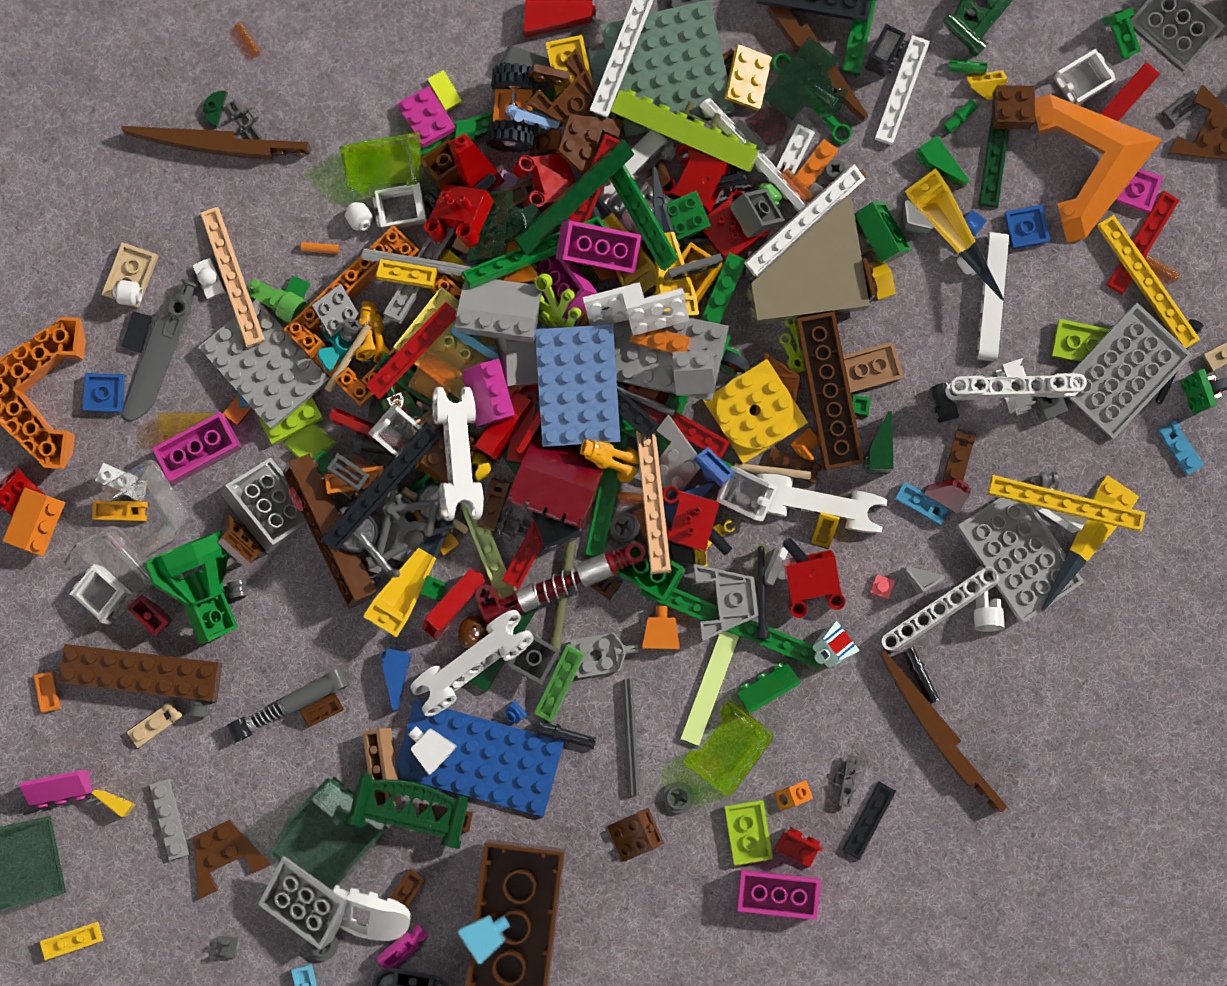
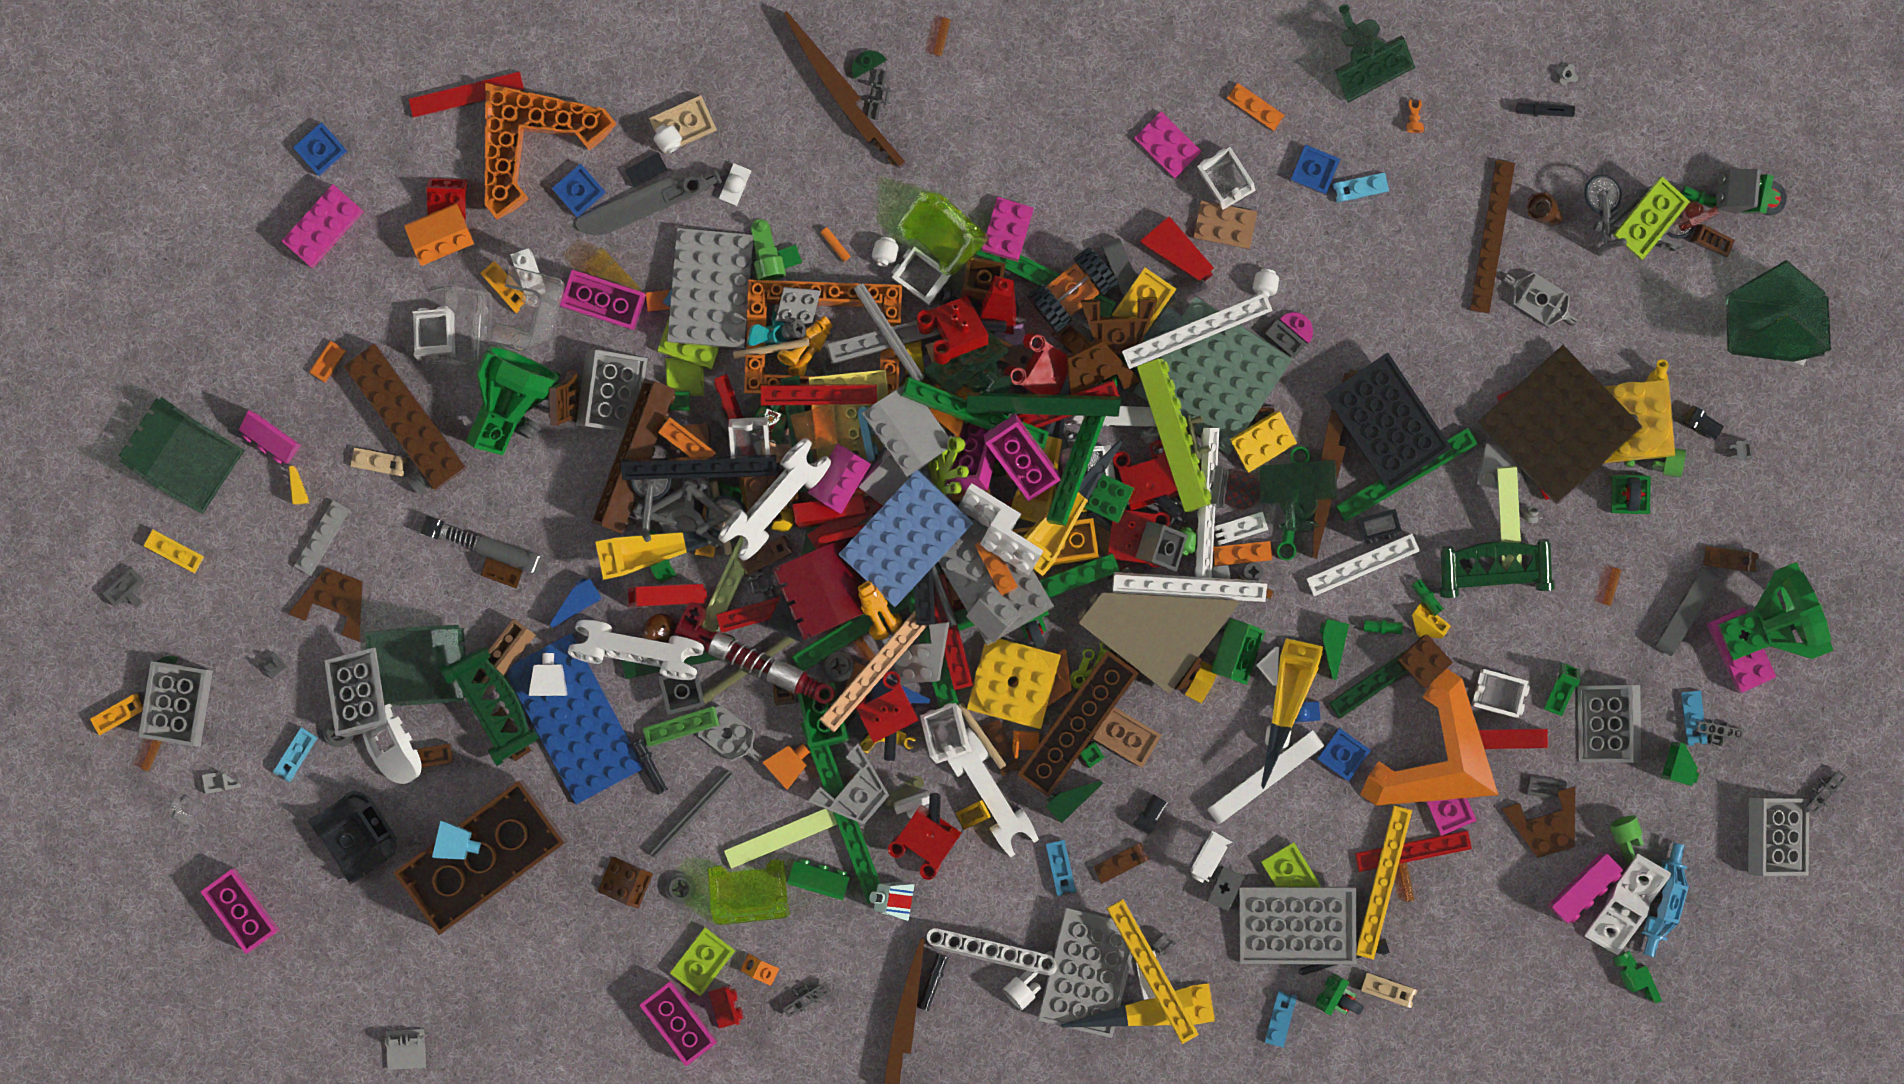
camera: 40 degrees right, 5 degrees up
(150, 615) = (452, 384): dark red slope -> none
(232, 277) = (752, 202): light nougat tile -> none
(295, 498) = (633, 409): coral piece -> none
(361, 481) = (689, 449): dark grey tile -> none
(402, 948) = (389, 791): dark pink plate -> none
(406, 273) = (872, 333): yellow plate -> none
(444, 90) = (1041, 222): neon yellow tile -> none
(466, 127) = (1024, 269): green tile -> none
(515, 712) = (630, 713): blue plate -> none
(531, 117) = (1075, 312): light blue plate -> none
(543, 73) = (1123, 302): reddish brown plate -> none
(662, 173) = (1129, 441): reddish brown slope -> none
(693, 268) = (1071, 540): dark grey tile -> none
(713, 467) = (941, 691): blue tile -> none
(761, 631) = (855, 837): black piece -> none
(797, 185) = (1214, 554): clear orange piece -> none
(869, 820) = (792, 1040): black tile -> none
(882, 586) = (971, 894): coral plate -> none
(922, 579) = (1003, 919): light grey slope -> none
(949, 493) = (1085, 880): slope -> none
(981, 387) = (1225, 878): white piece -> none

